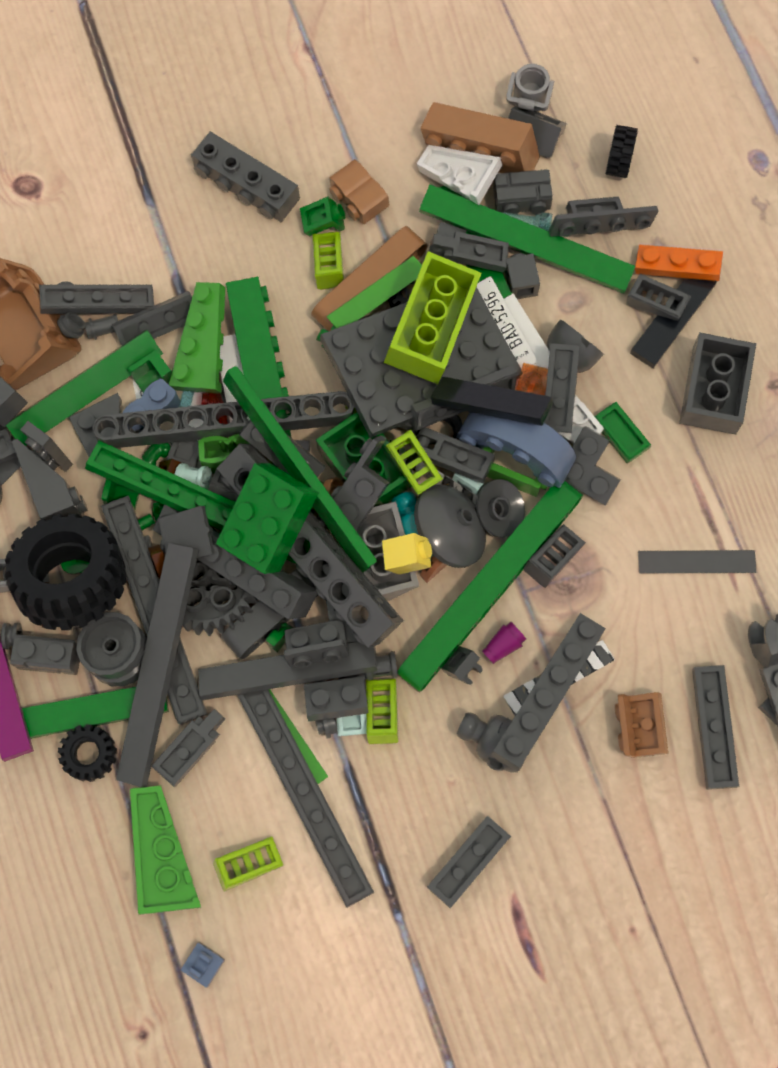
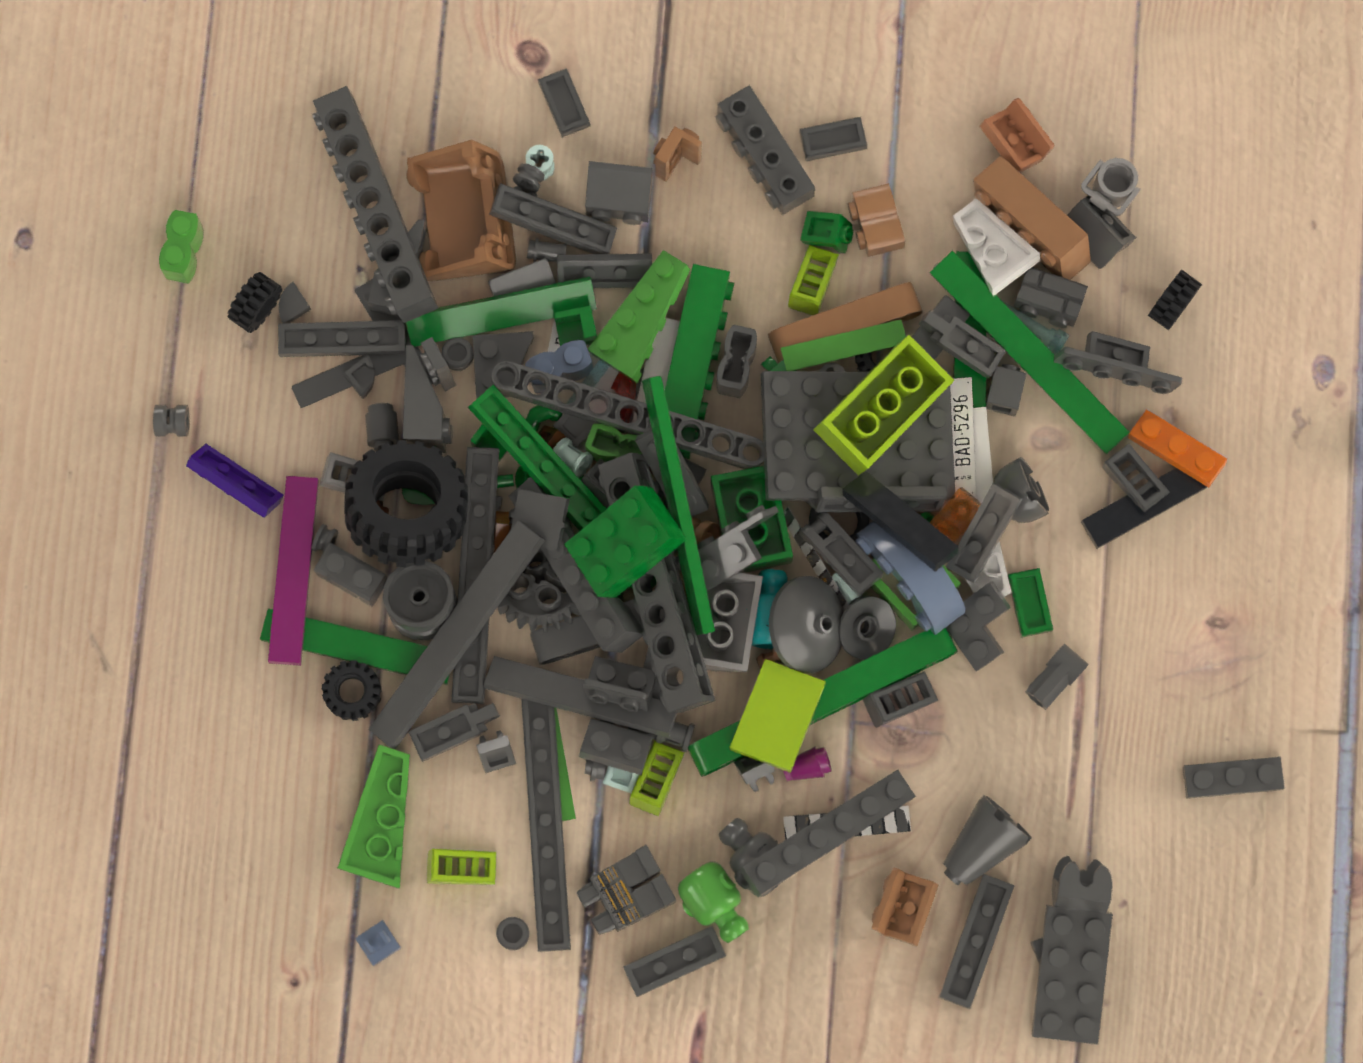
camera: 20 degrees right, 5 degrees up
(19, 517) = (381, 425): none -> dark grey brick
(60, 260) = (533, 156): none -> light aqua bush
(61, 273) = (528, 177): none -> dark grey bush
(64, 436) = (457, 353): none -> dark grey tile
(68, 210) = (564, 102): none -> dark grey tile
(71, 325) = (515, 239): dark grey plate -> none
(93, 352) = (523, 278): none -> dark grey slope
(140, 253) = (618, 192): none -> dark grey slope
(174, 197) = (677, 145): none -> medium nougat bracket
(235, 751) = (495, 753): none -> dark grey tile
(277, 638) = (585, 660): green tile -> none
(295, 149) = (833, 139): none -> dark grey tile
(295, 343) = (738, 356): none -> dark grey brick
(317, 901) = (512, 933): none -> dark grey tile
(394, 827) = (616, 892): none -> dark grey hips
(400, 442) = (793, 519): lime slope -> none
(407, 553) = (747, 636): light yellow brick -> none
(439, 84) = (1017, 136): none -> nougat bracket
(461, 611) = (777, 715): none -> lime tile
(476, 791) = (711, 899): none -> bright green piece
(674, 475) = (1060, 672): none -> dark grey piece
(682, 640) = (984, 842): none -> dark grey cone
(697, 561) = (1042, 770): dark grey sticker -> none
(718, 383) = (1151, 597): dark grey brick -> none

